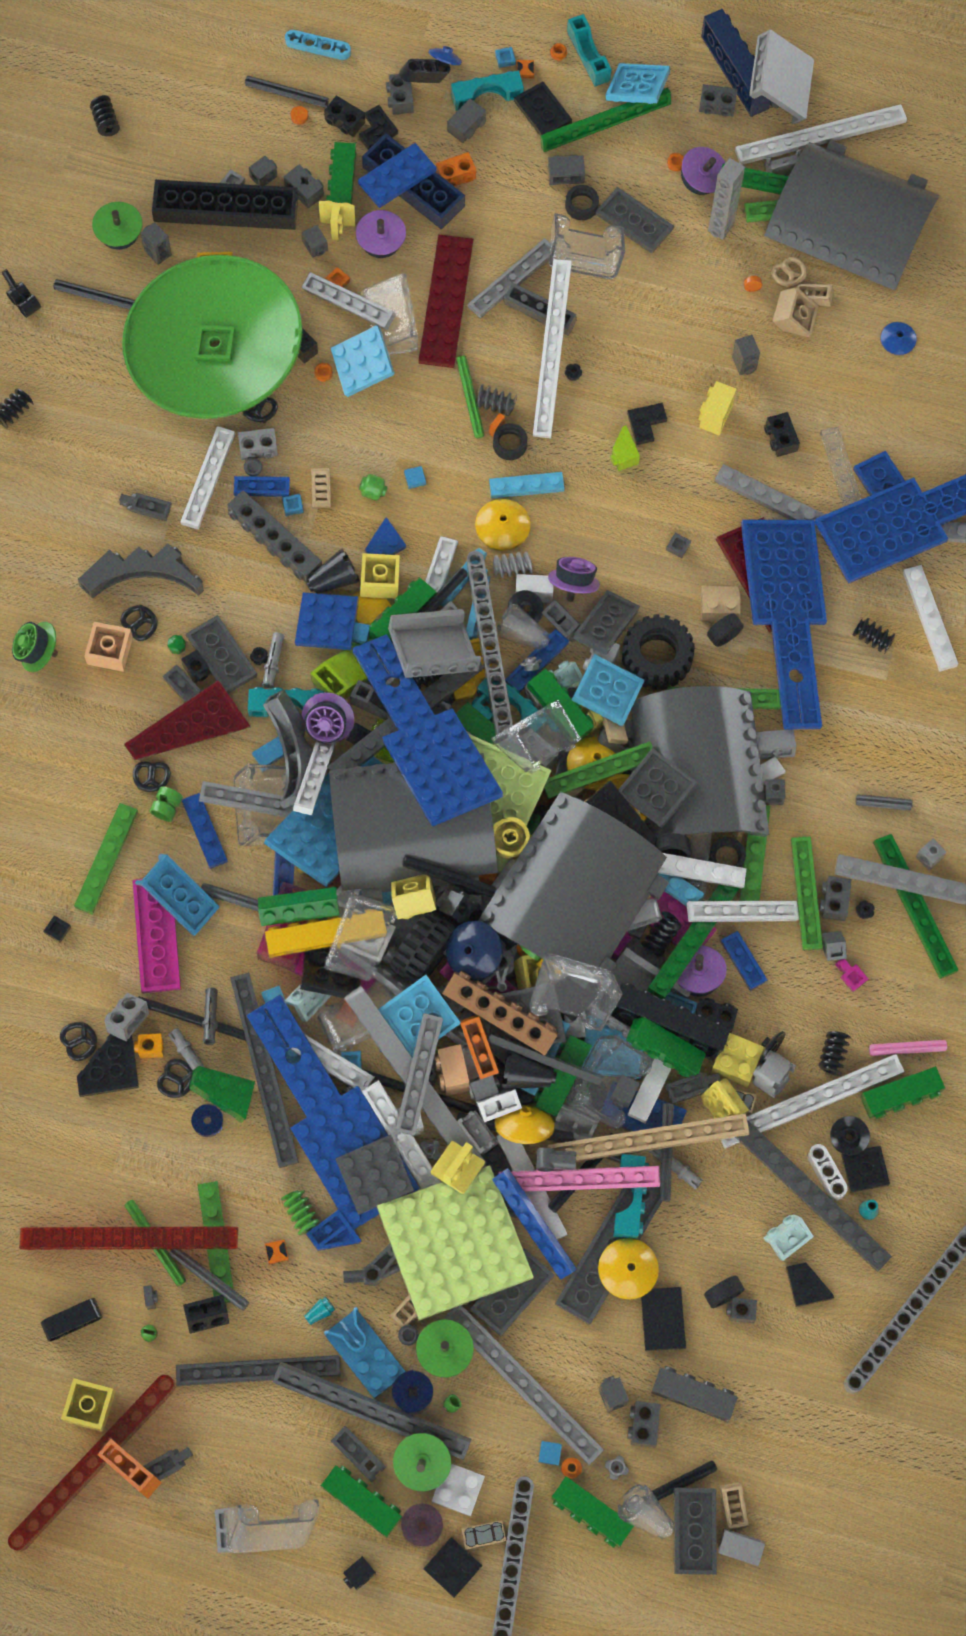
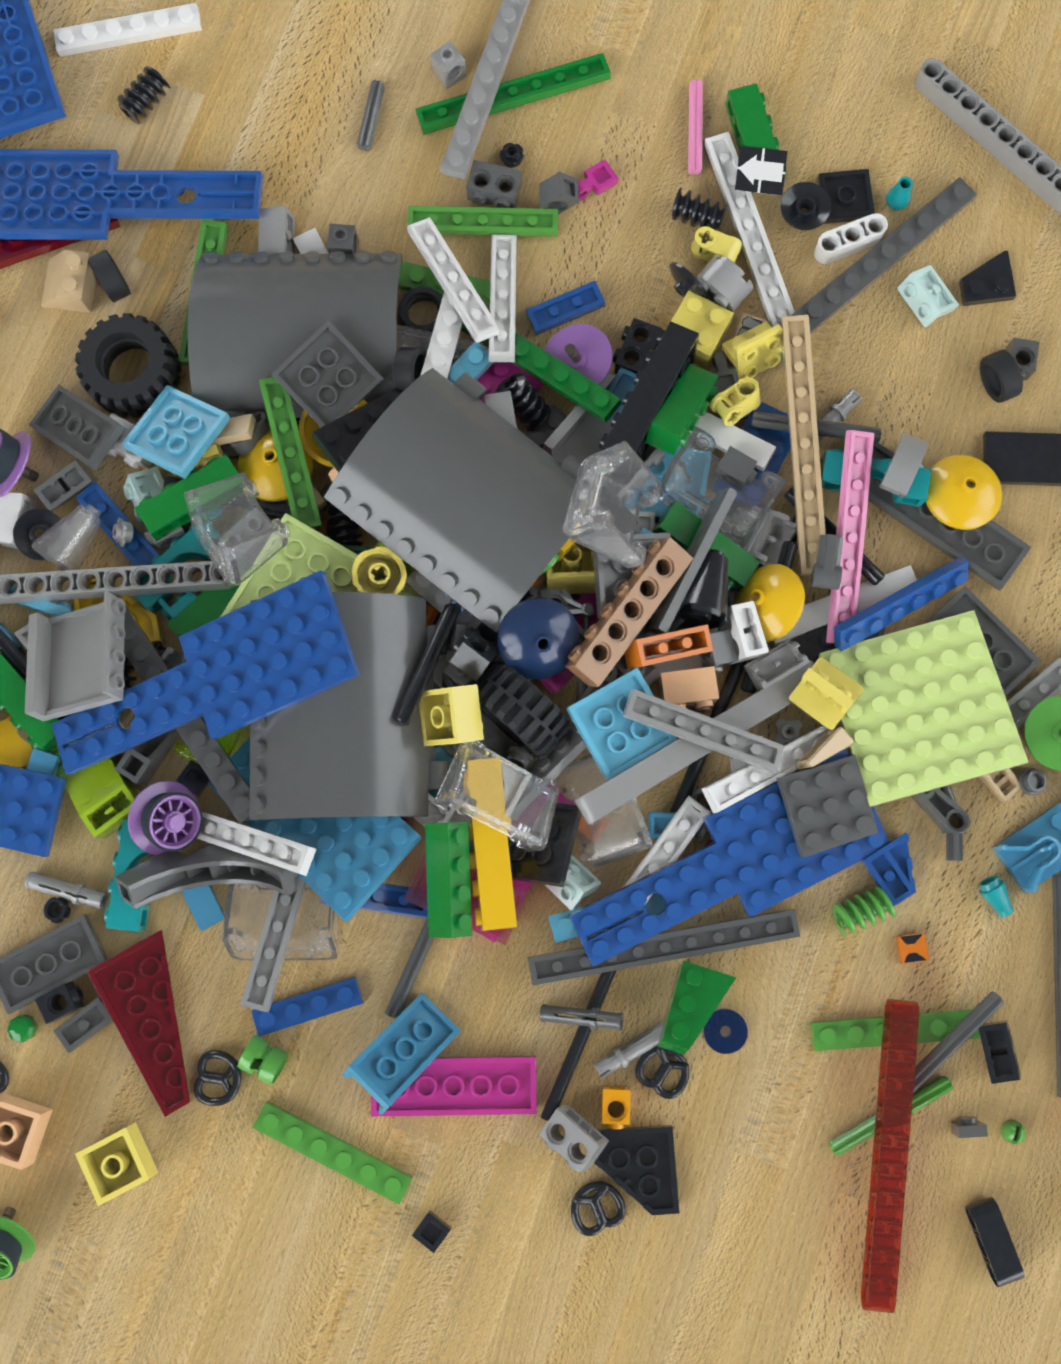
camera: 75 degrees left, 10 degrees up
(91, 716) = (117, 1163): none -> light yellow brick
(420, 1175) = (828, 745): none -> tan slope
(640, 1212) = (904, 464): none -> light grey arch
(678, 1089) = (736, 402): none -> light yellow piece
(749, 871) = (453, 280): none -> white tile
(805, 1072) = (715, 244): none -> light yellow piece
(871, 1096) = (761, 170): none -> black sticker

